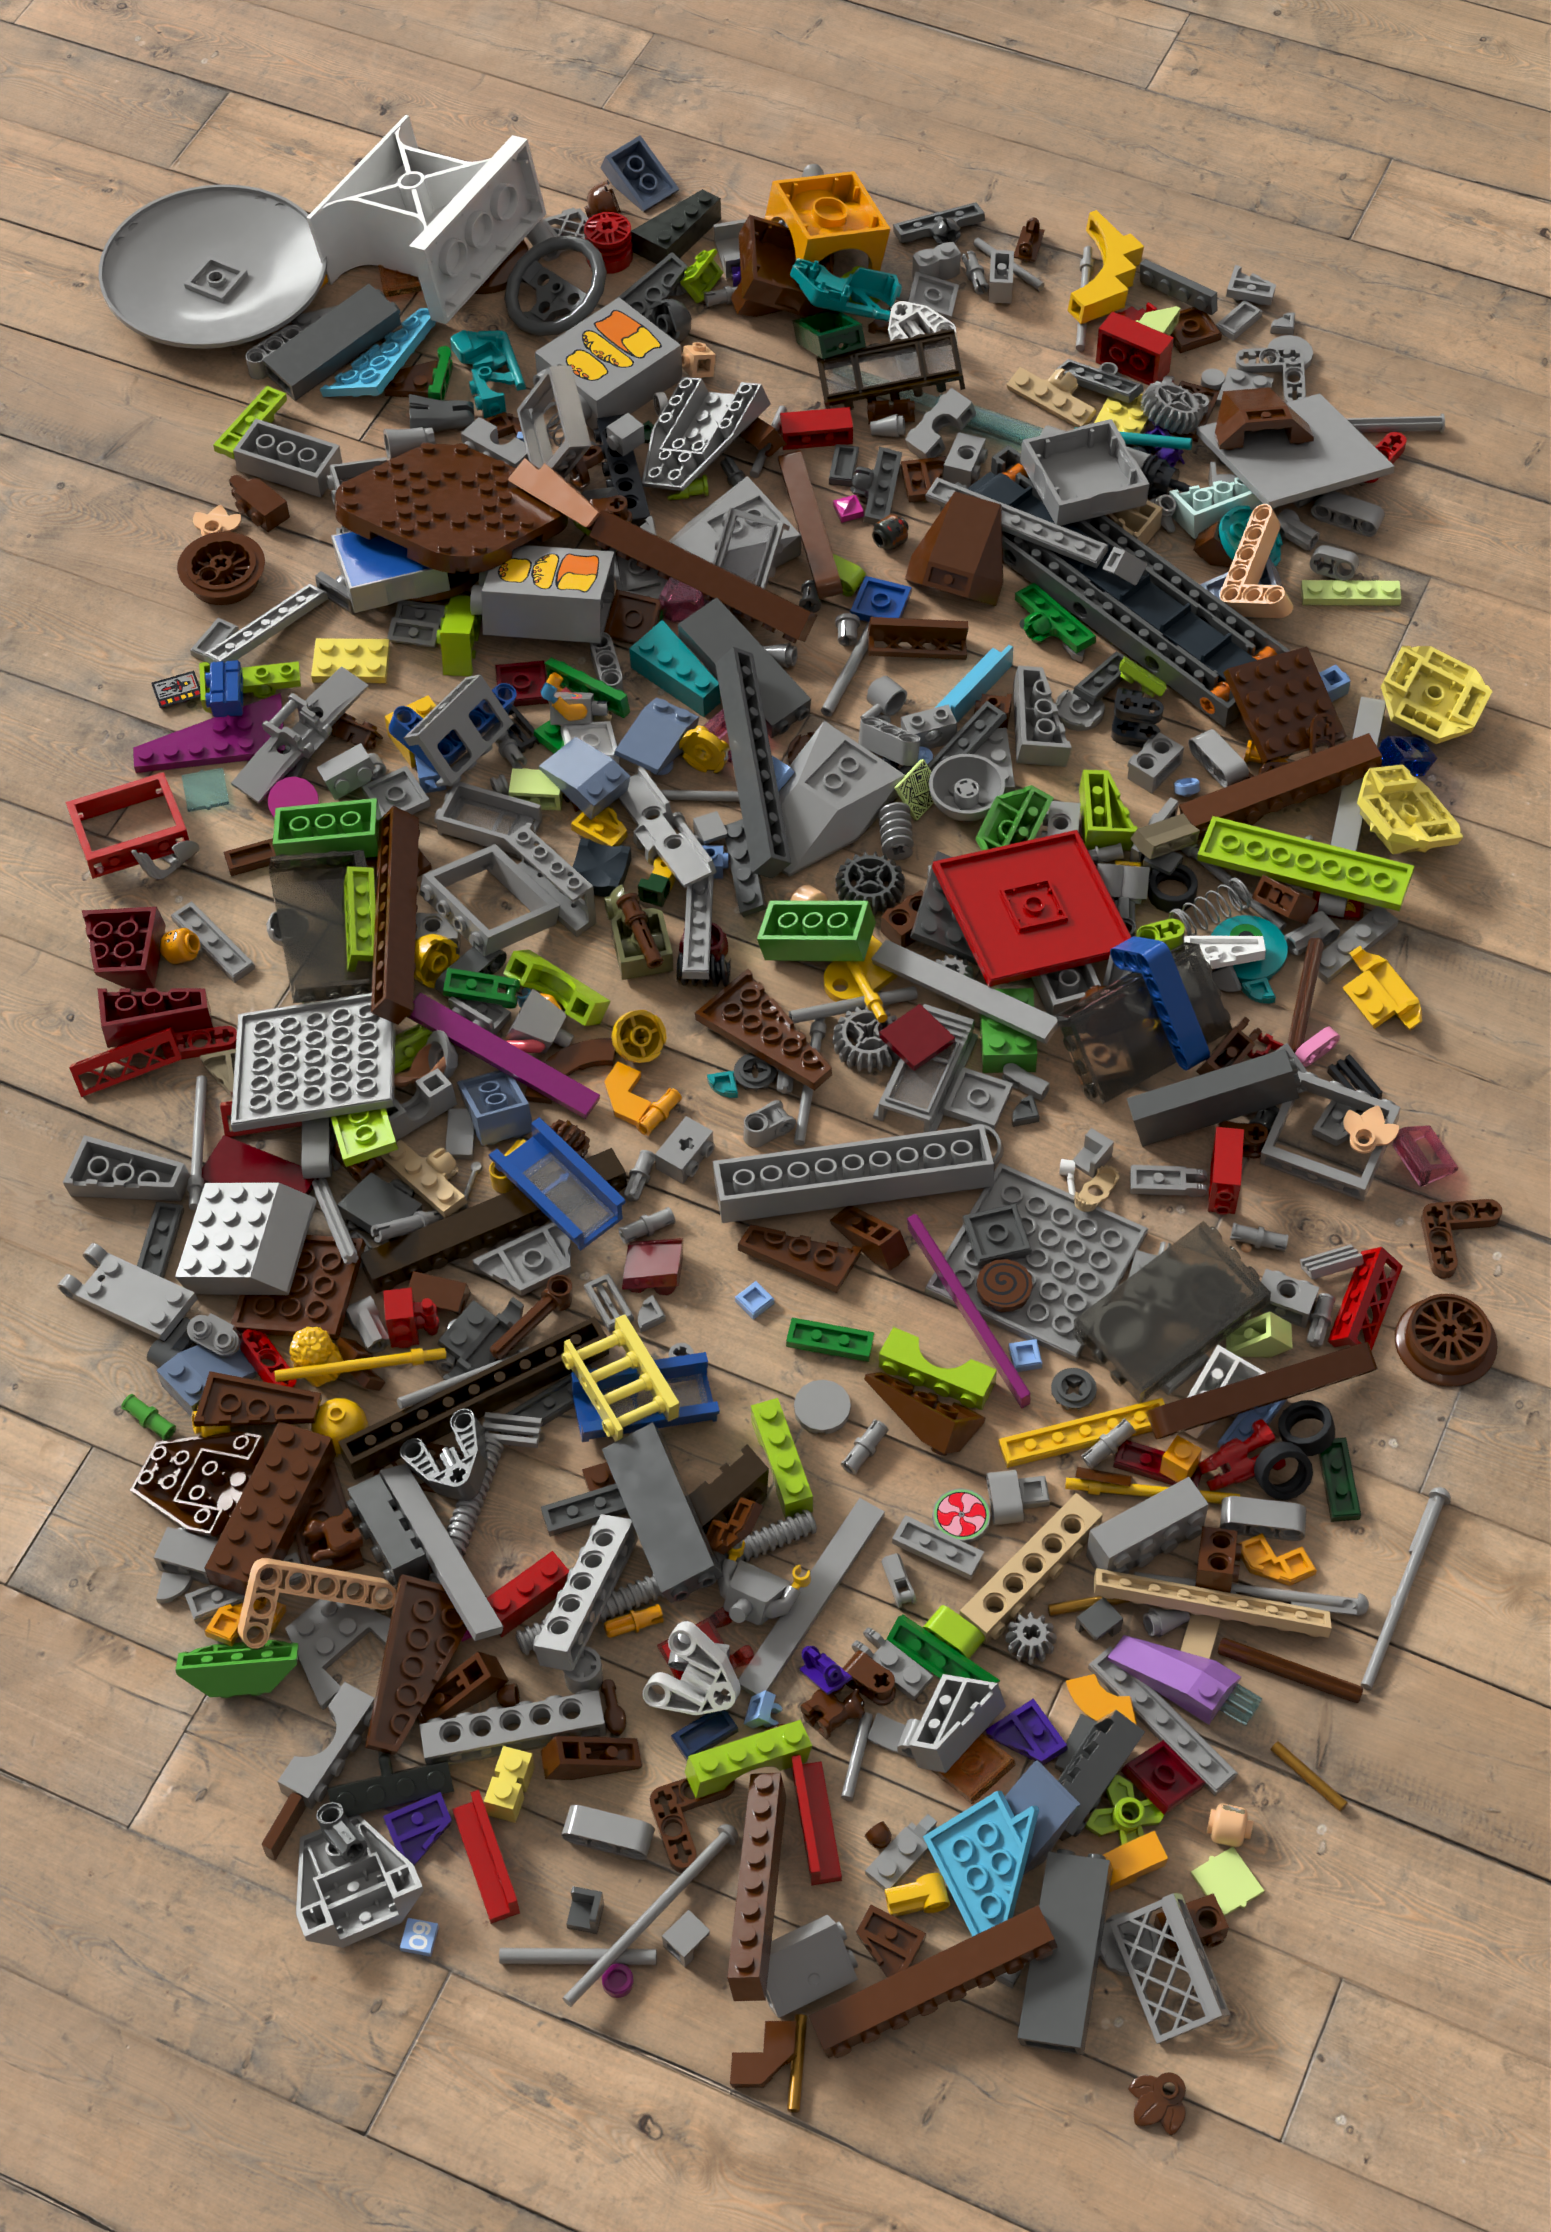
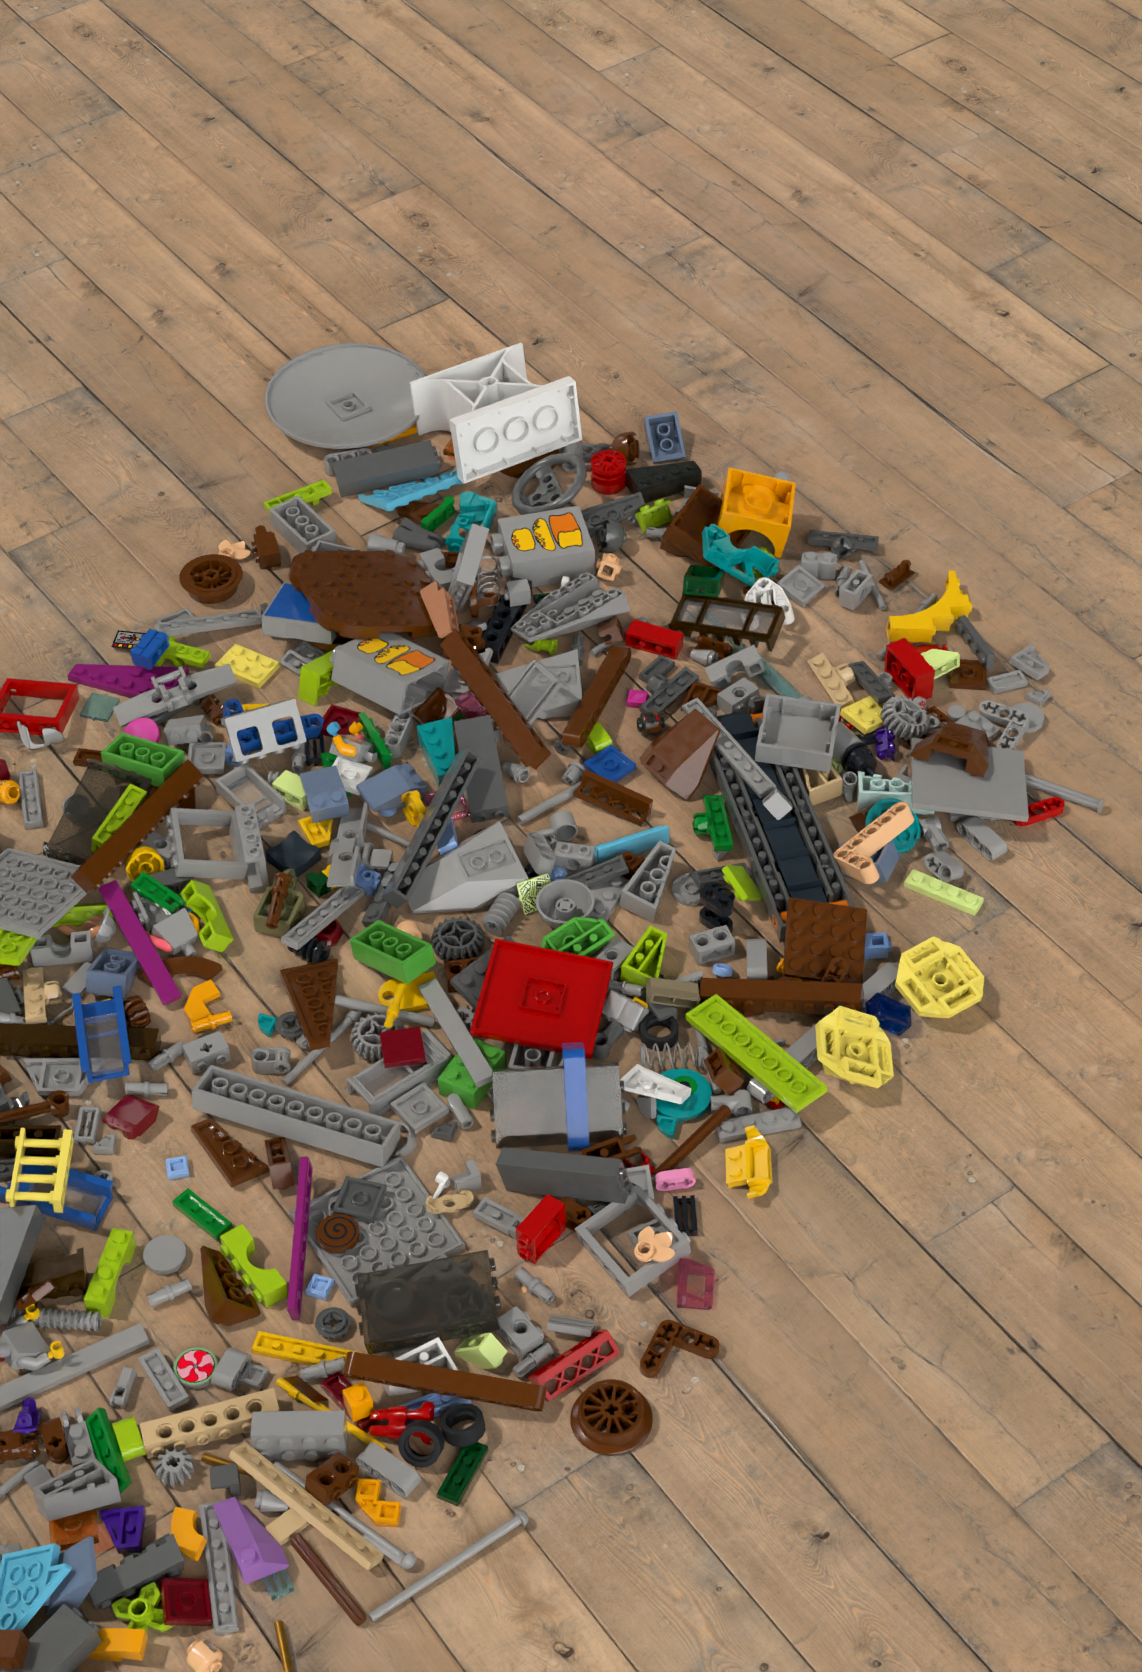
camera: 30 degrees right, 10 degrees down
(638, 1036) = (230, 967): yellow cylinder -> none
(1156, 440) = (868, 731): teal piece -> none
(1168, 931) = (625, 1056): lime beam -> none

